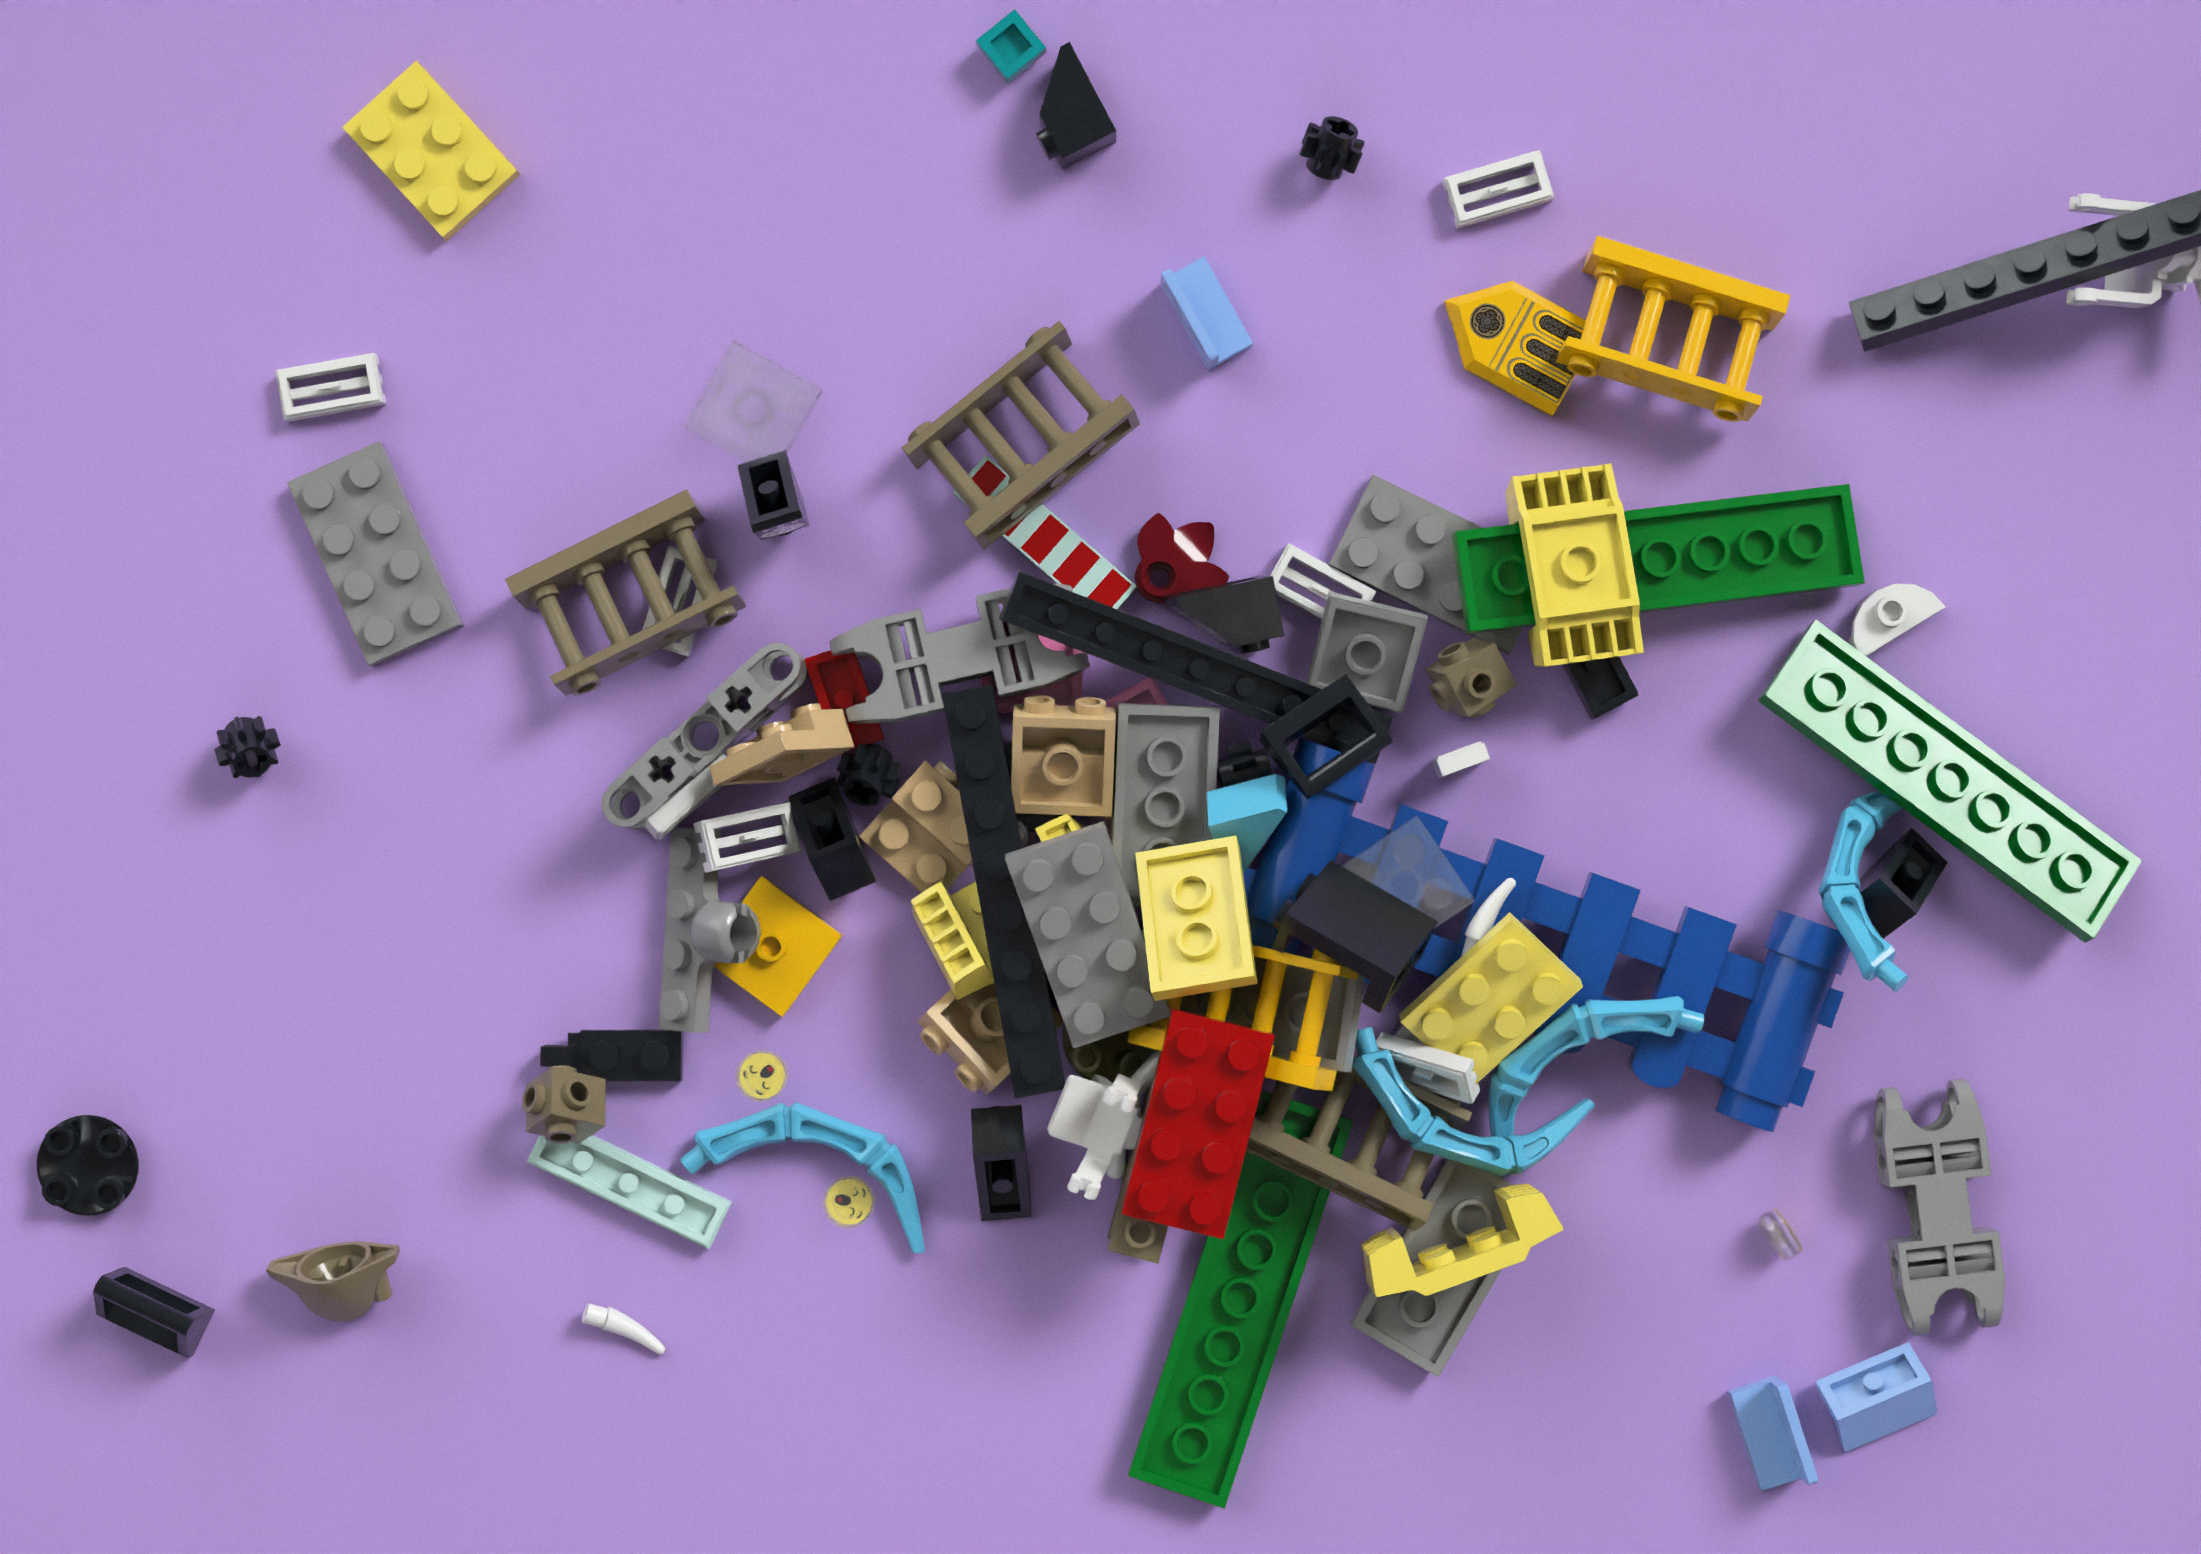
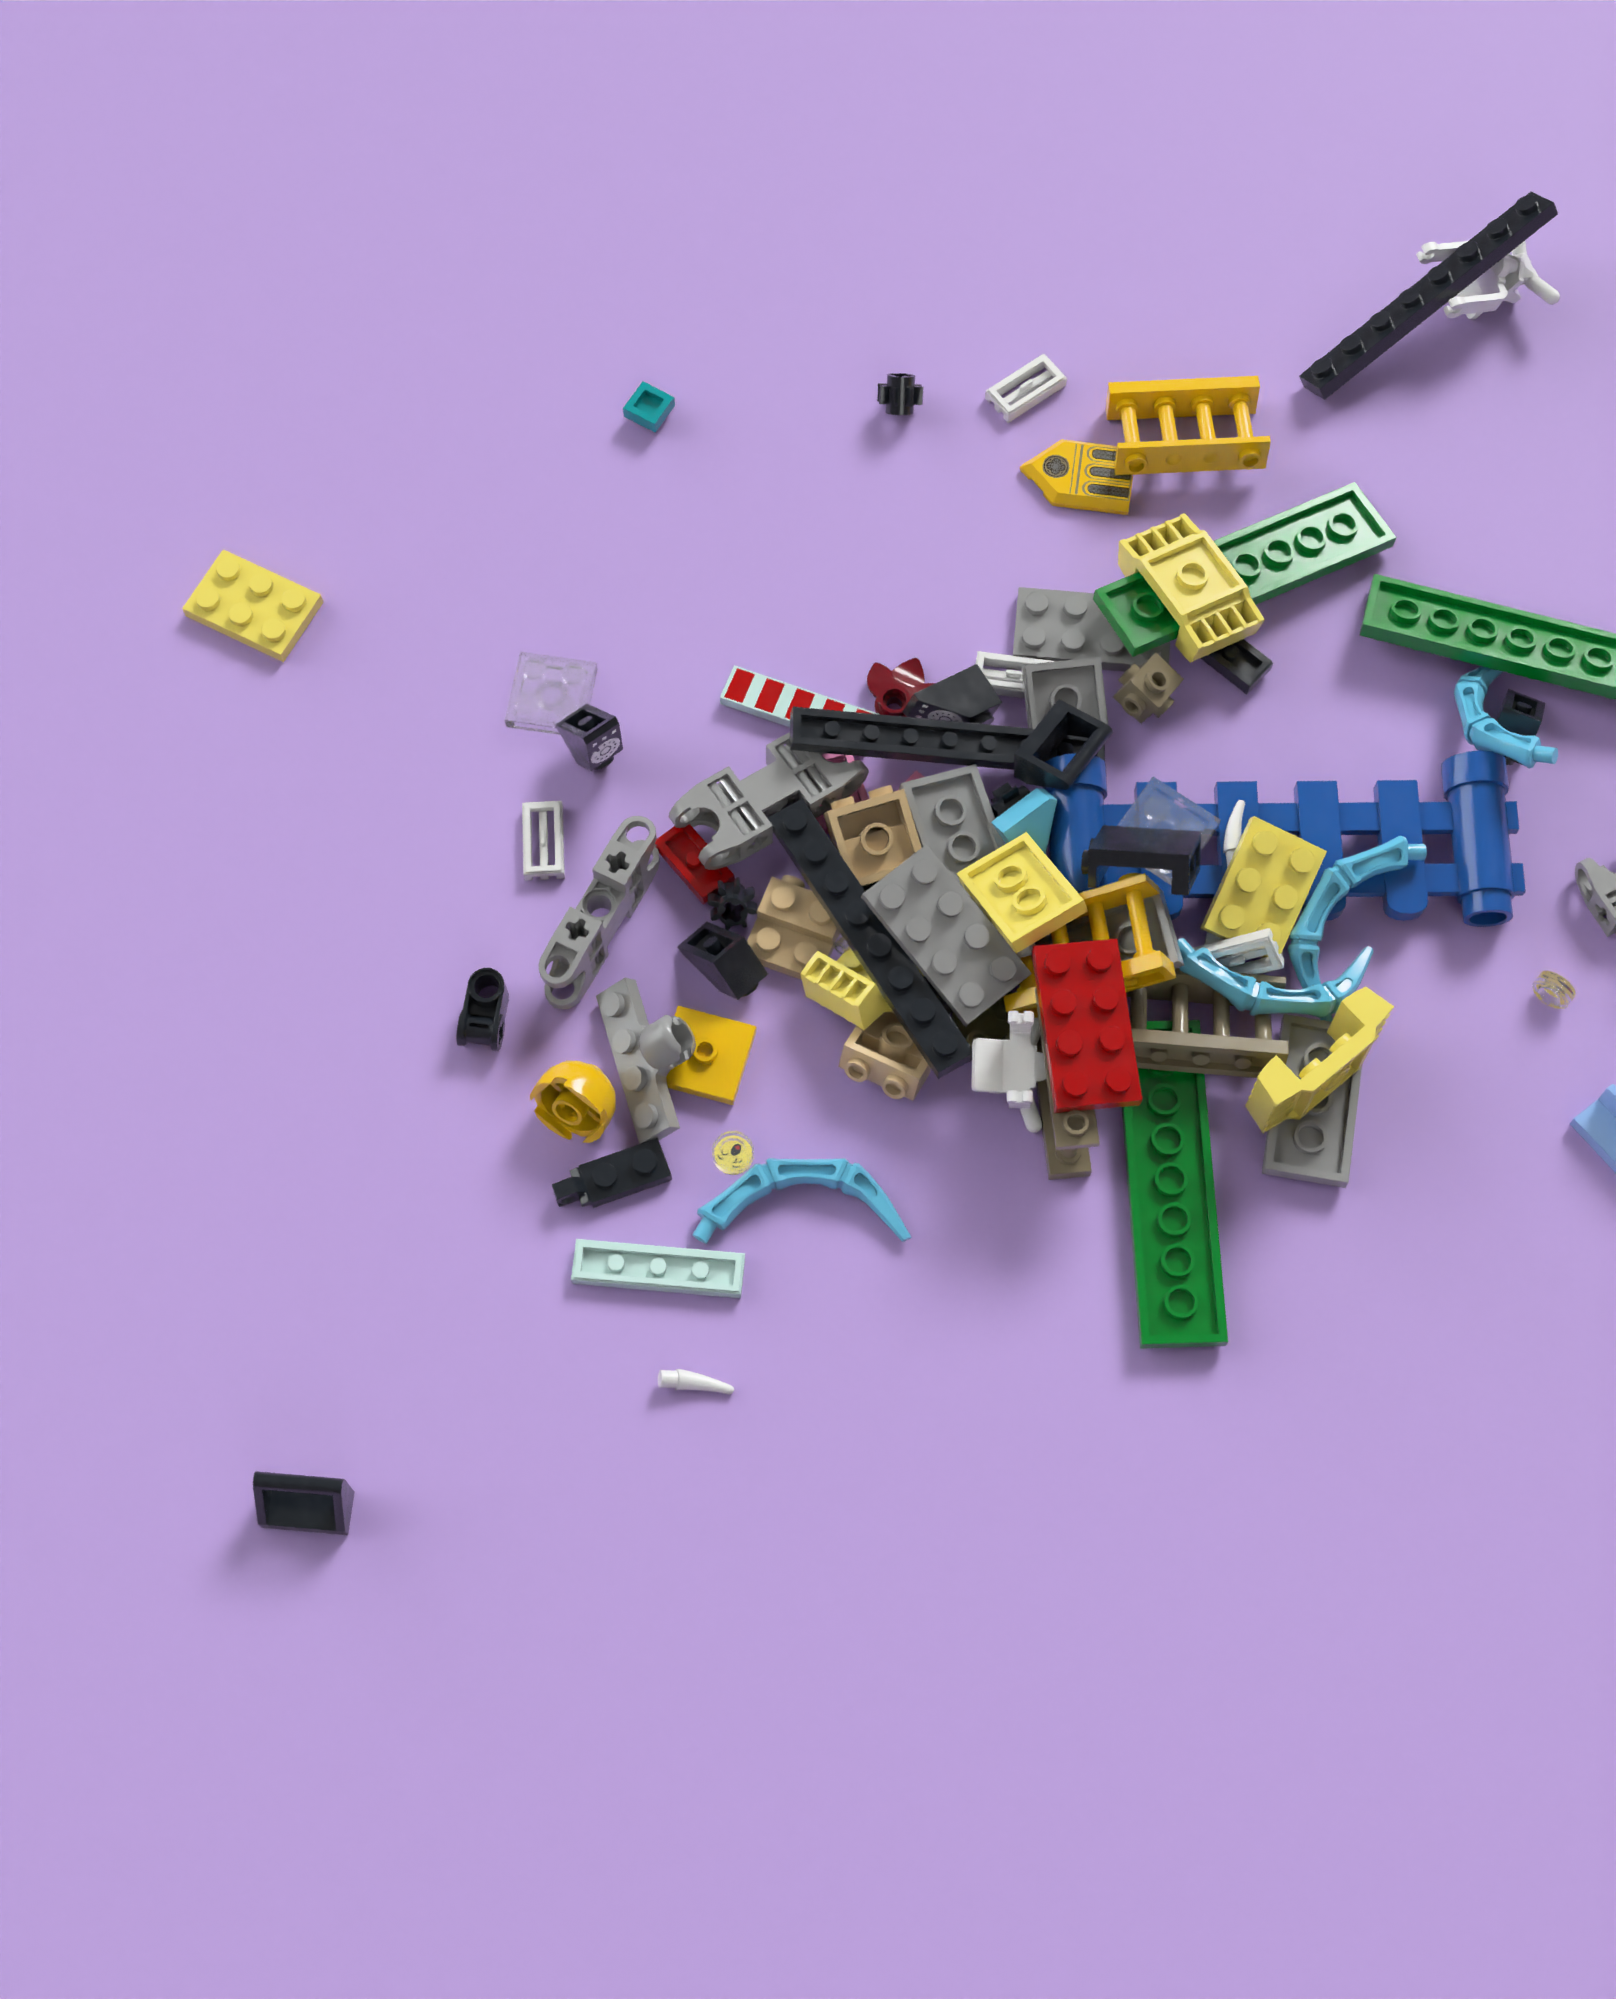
camera: 20 degrees left, 20 degrees down
(87, 1165) = (213, 1408): black dish -> none
(247, 747) = (238, 1041): black gear -> none
(338, 1278) = (453, 1423): dark tan hat -> none
(372, 380) = (231, 788): white tile -> none
(375, 553) = (301, 884): light grey plate -> none
(533, 806) = (483, 1018): none -> black piece
(565, 1105) = (588, 1215): dark tan brick -> none
(586, 566) = (478, 815): dark tan fence -> none
(603, 953) = (575, 1100): none -> yellow cylinder
(682, 803) = (603, 963): white tile -> none
(711, 845) = (662, 982): white tile -> none
(786, 748) = (664, 896): tan plate -> none
(849, 1201) = (837, 1222): clear tile -> none
(1001, 1162) = (945, 1146): black slope -> none
(1028, 483) = (774, 667): dark tan fence -> none
(1072, 113) = (712, 432): black slope -> none
(1205, 312) = (853, 526): light blue panel -> none
(1460, 759) = (1165, 747): white tile -> none
(1889, 614) = (1425, 555): white plate -> none

